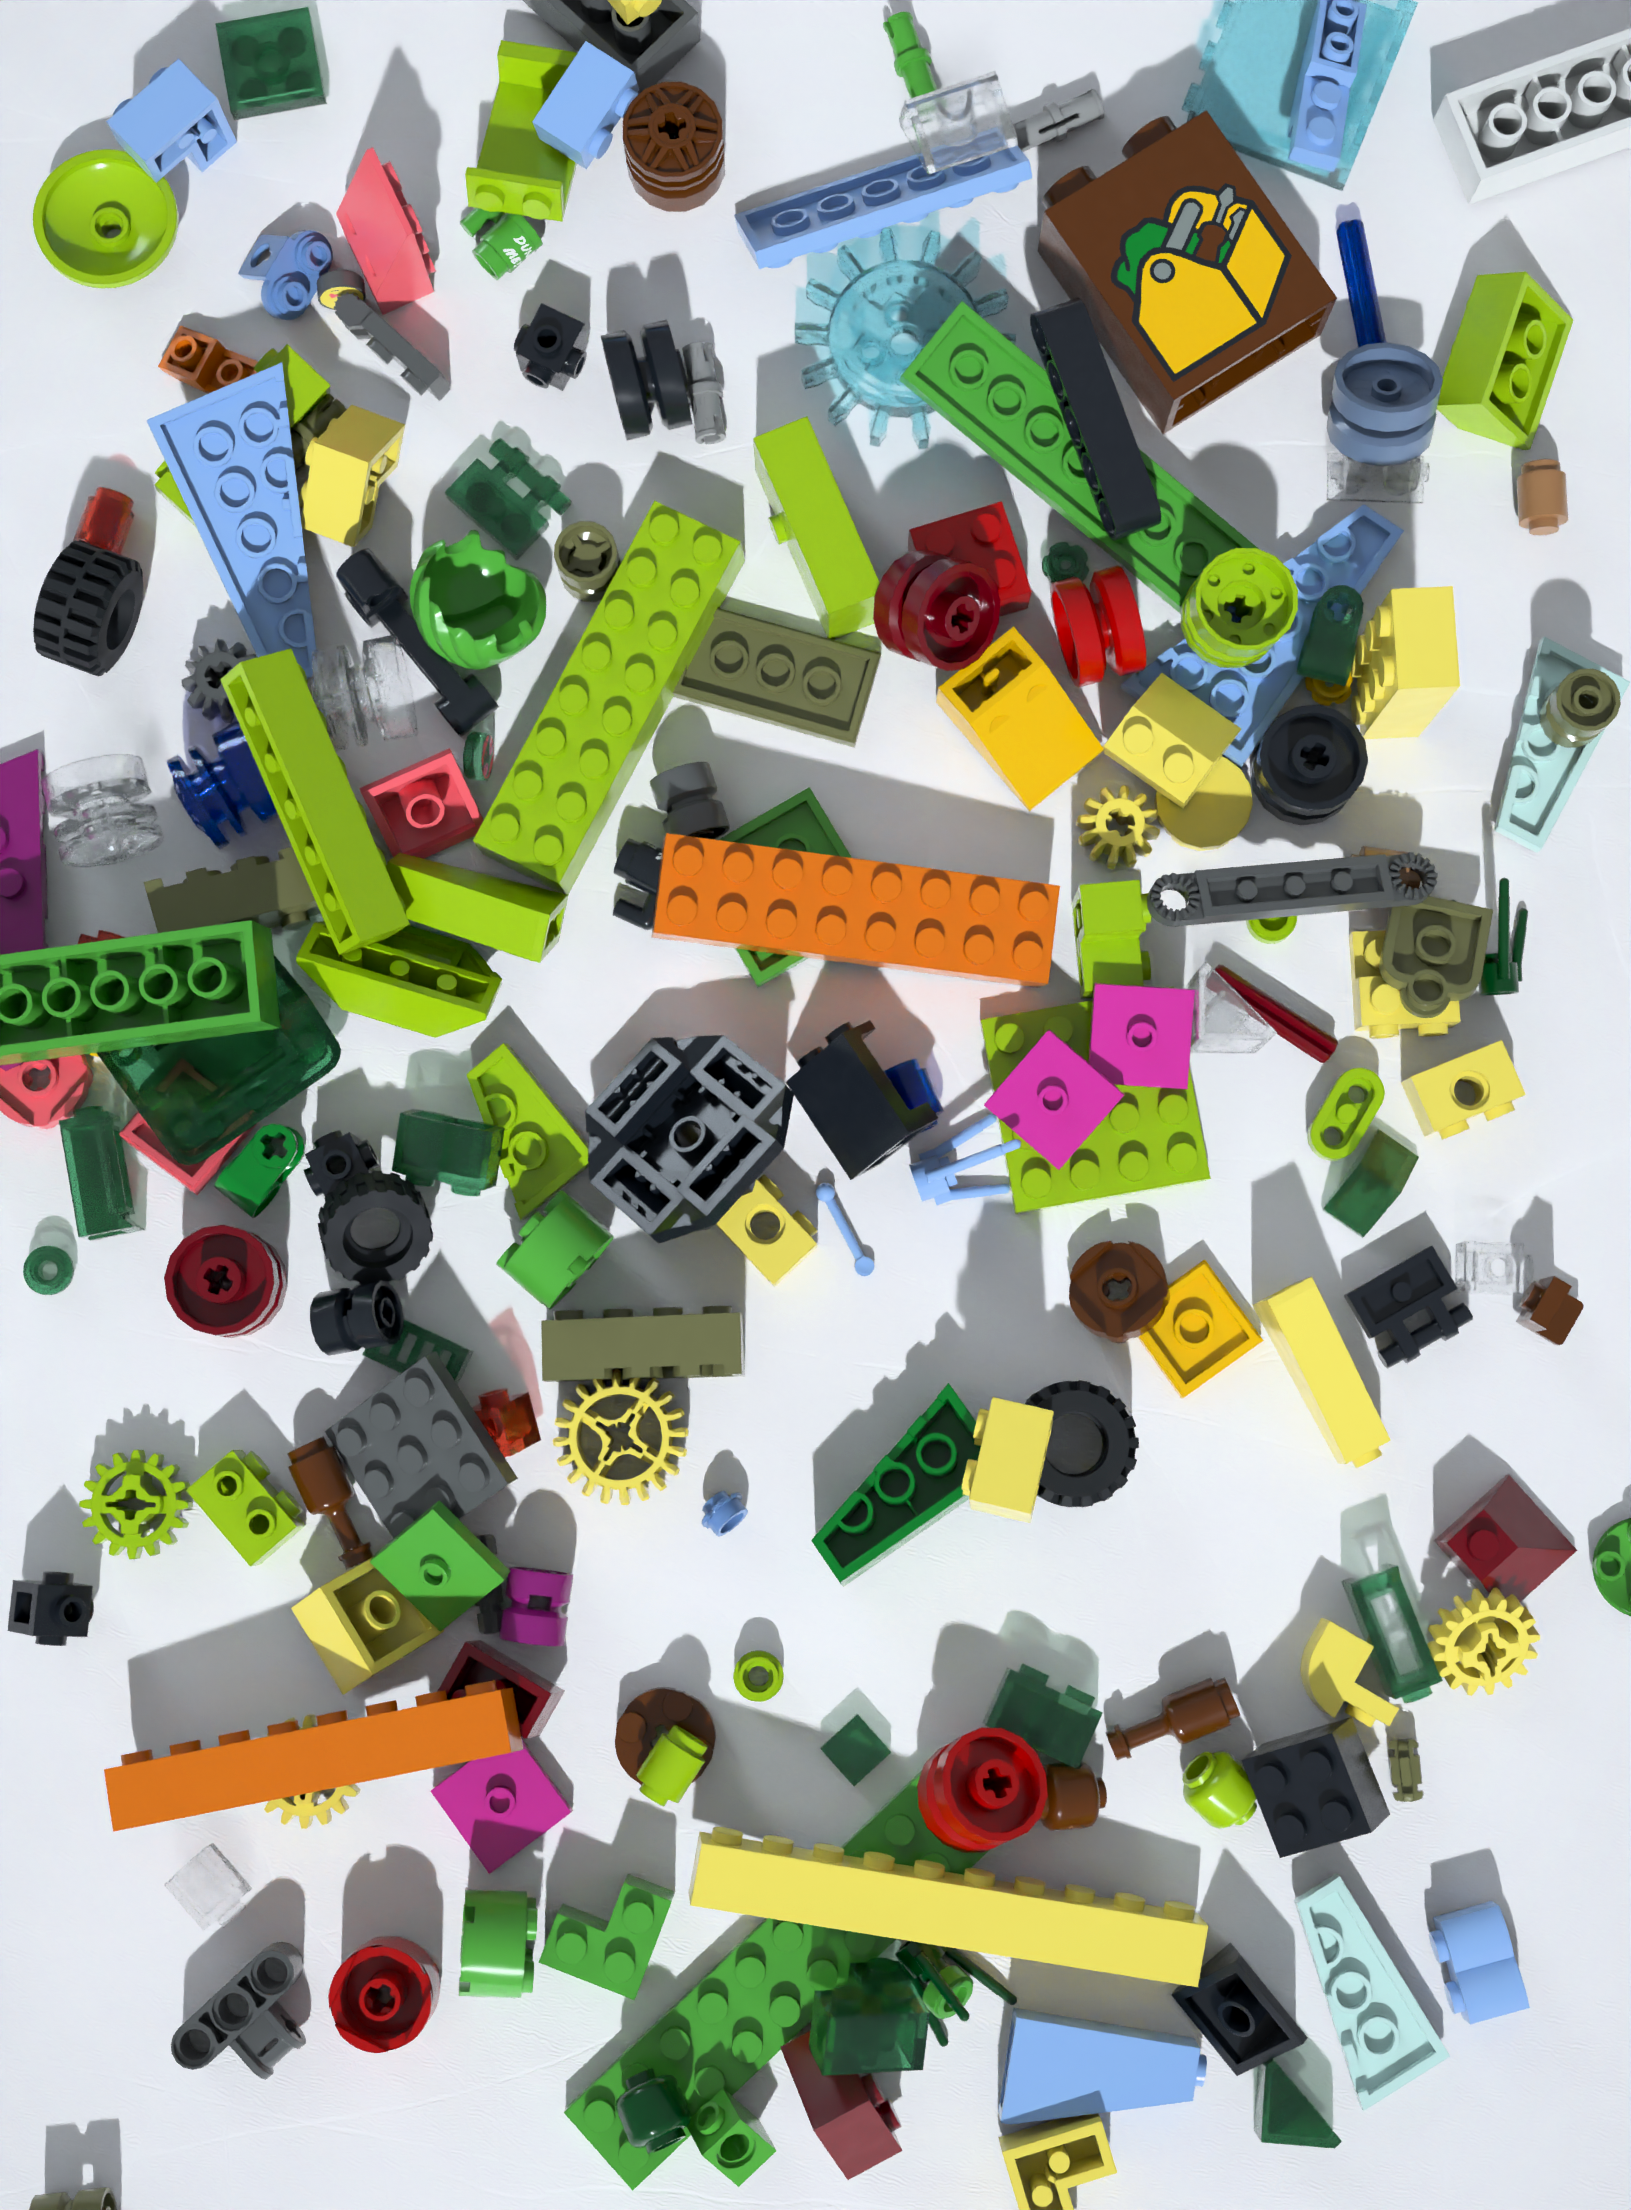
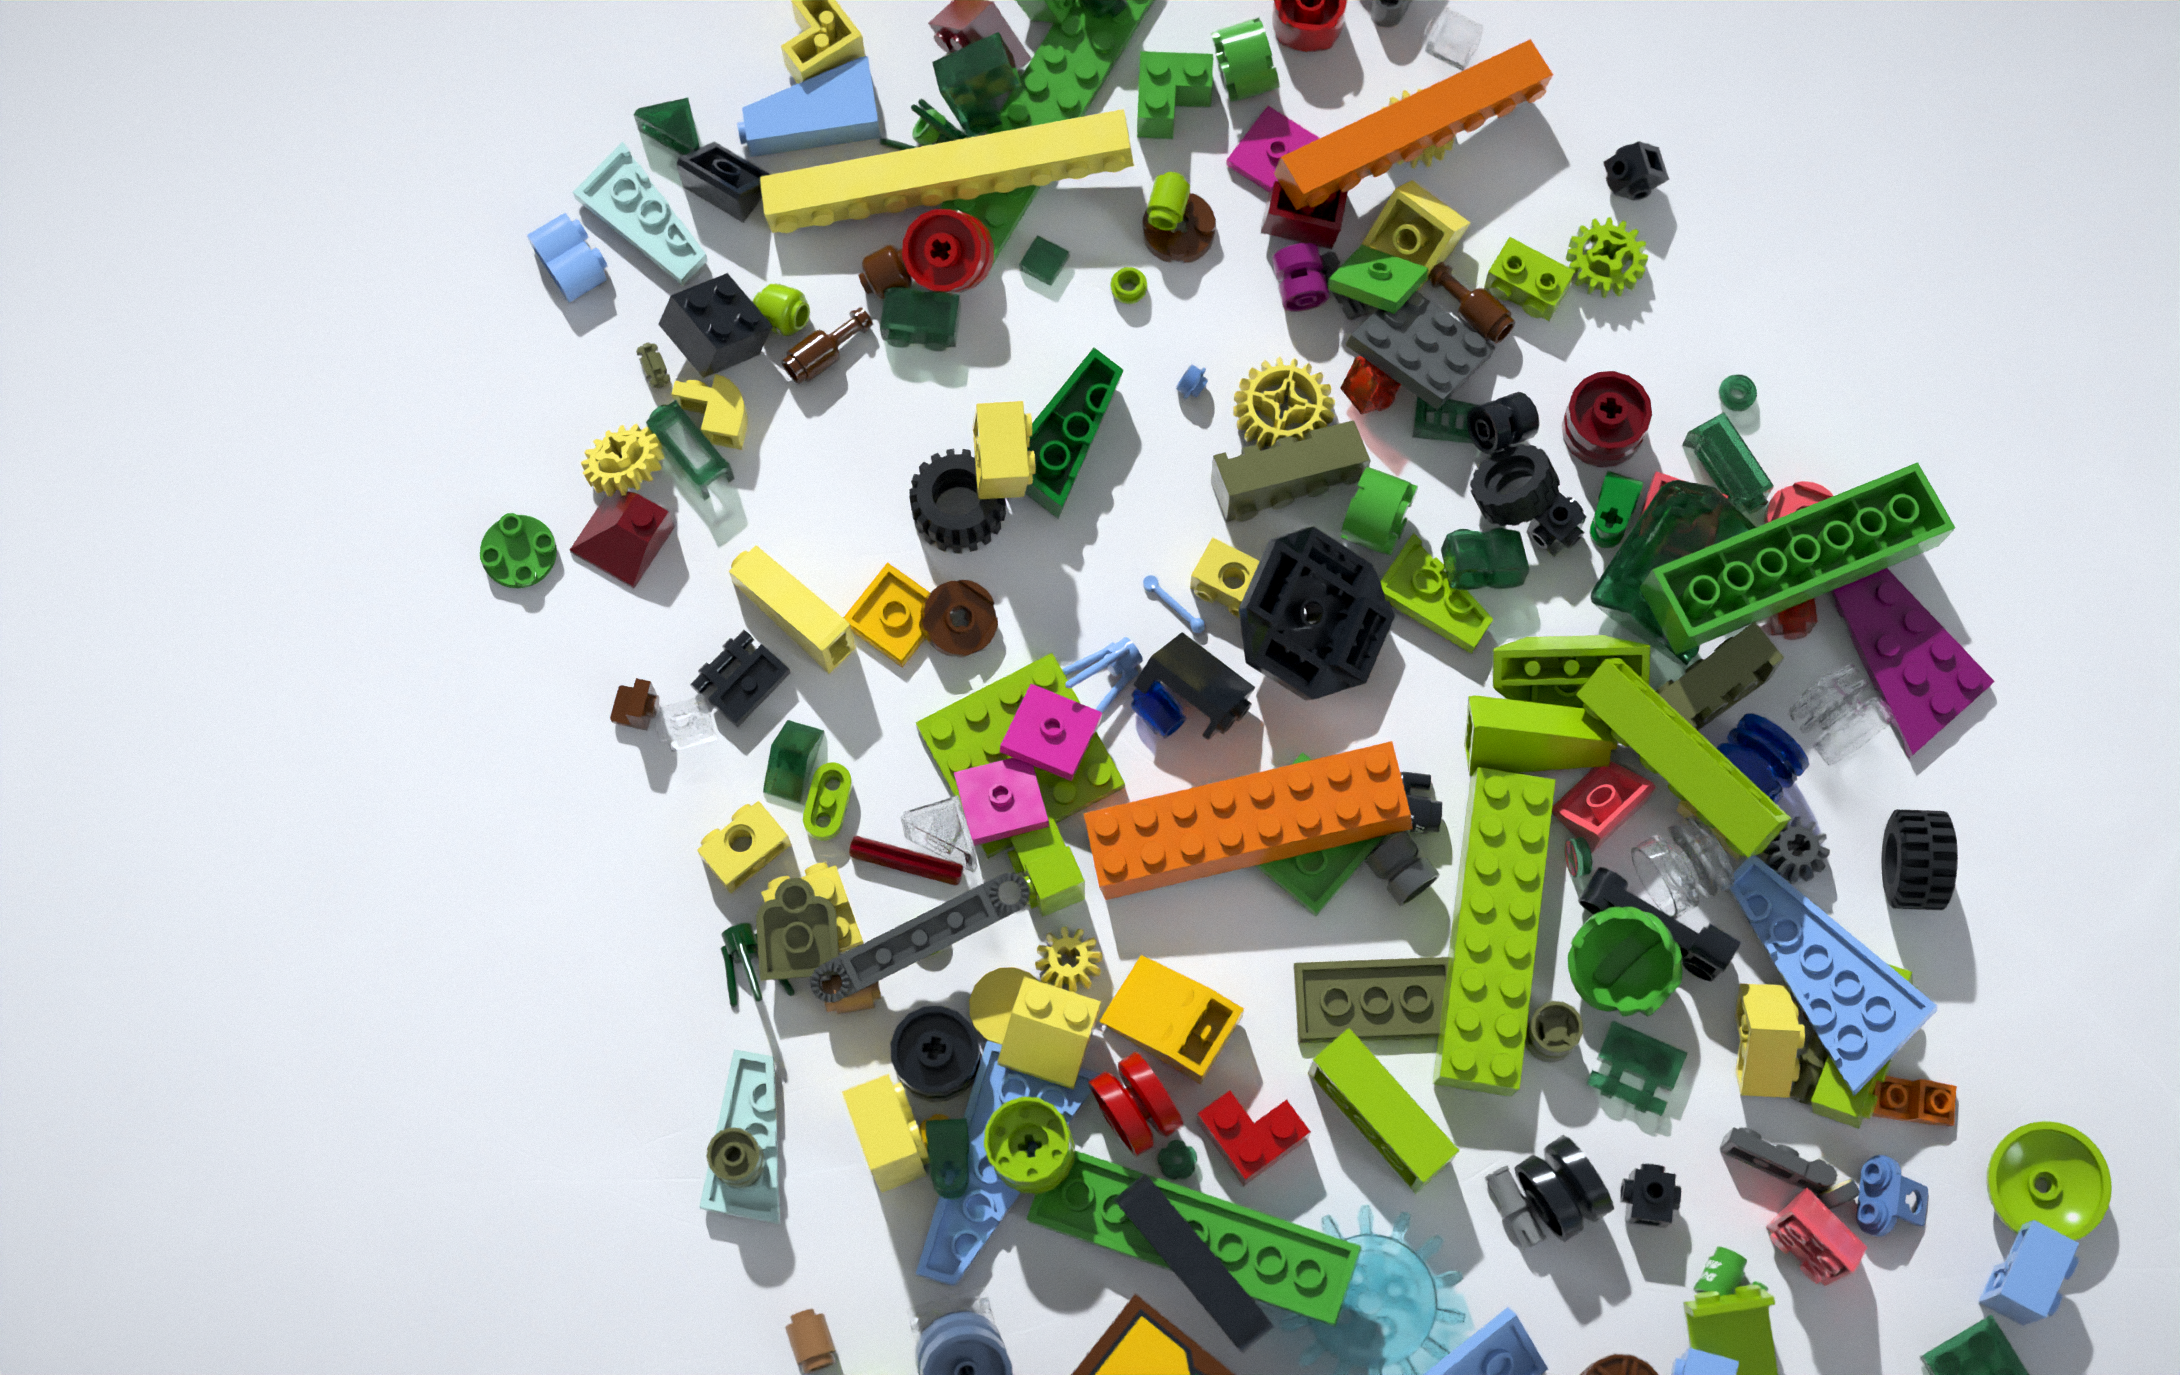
camera: 160 degrees right, 10 degrees down
(106, 520) = (1939, 940): clear red brick -> none
(936, 609) = (1266, 1062): dark red wheel -> none

